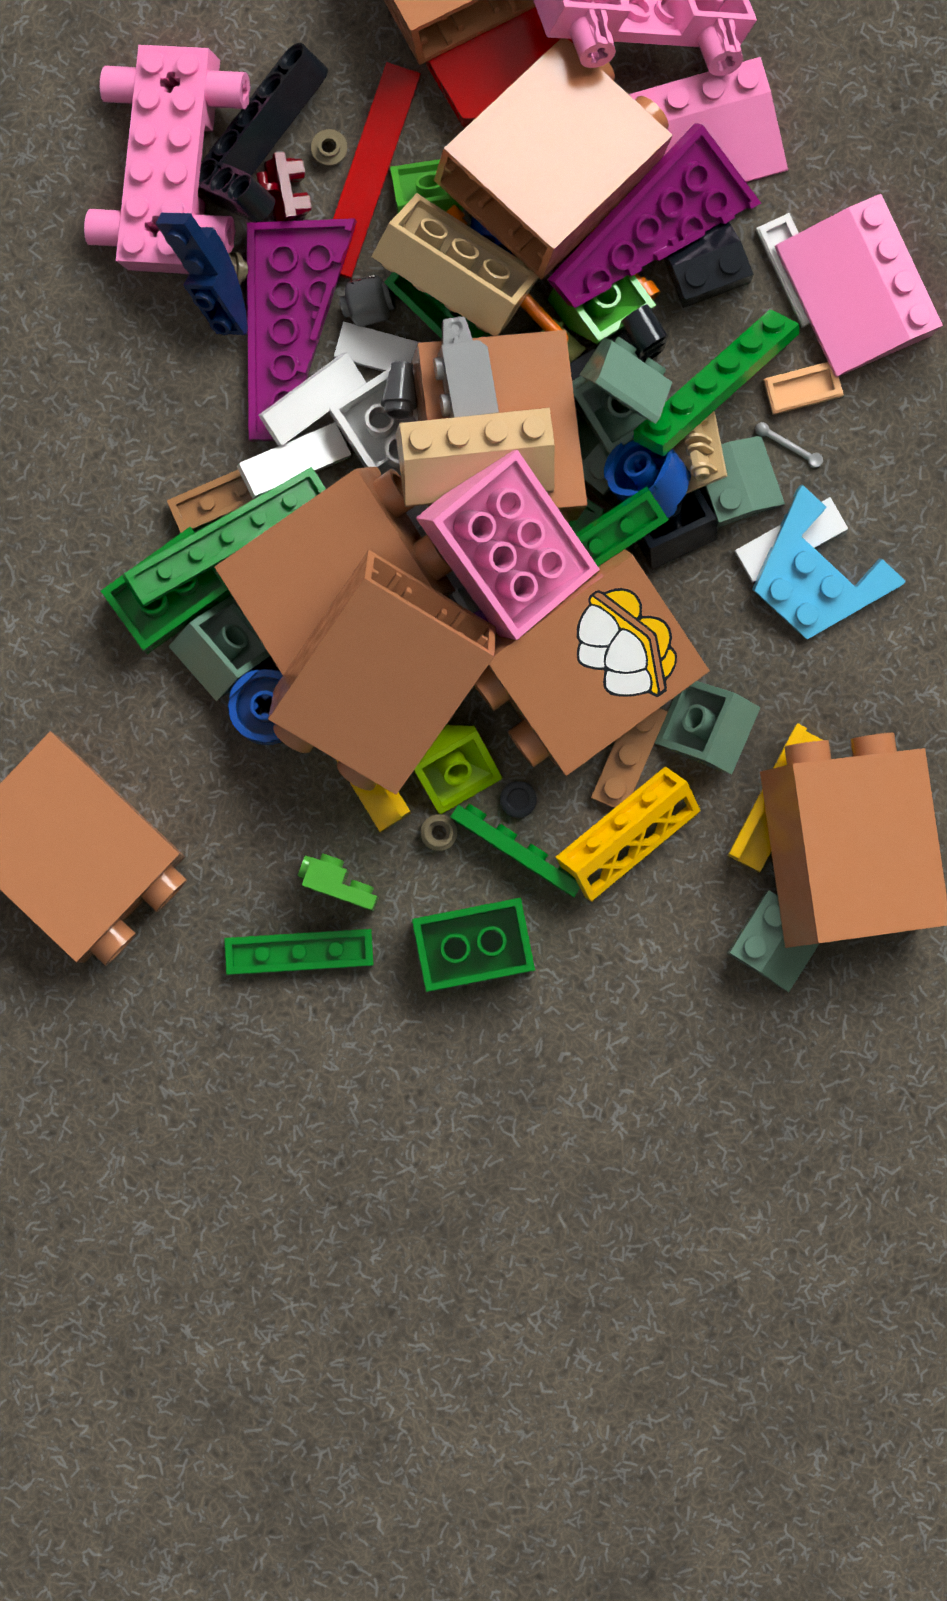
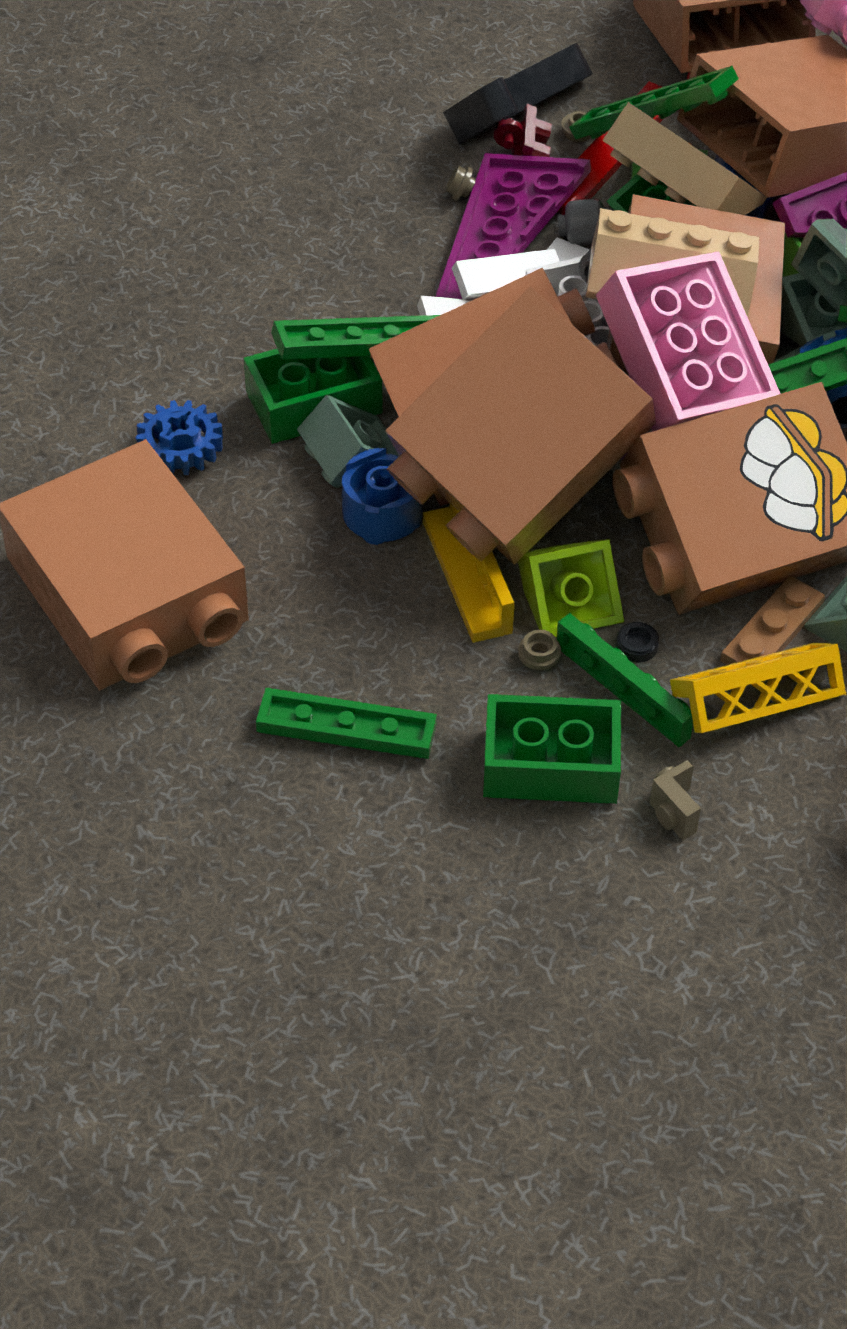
camera: 15 degrees right, 35 degrees down
(50, 671) = (180, 435): none -> blue gear
(164, 150) = (407, 123): bright pink piece -> none
(211, 275) = (440, 152): dark blue slope -> none
(330, 878) = (410, 657): bright green plate -> none
(407, 178) = (661, 101): none -> green plate
(464, 372) = (676, 199): light grey hinge -> none
(580, 972) = (671, 801): none -> dark tan bracket

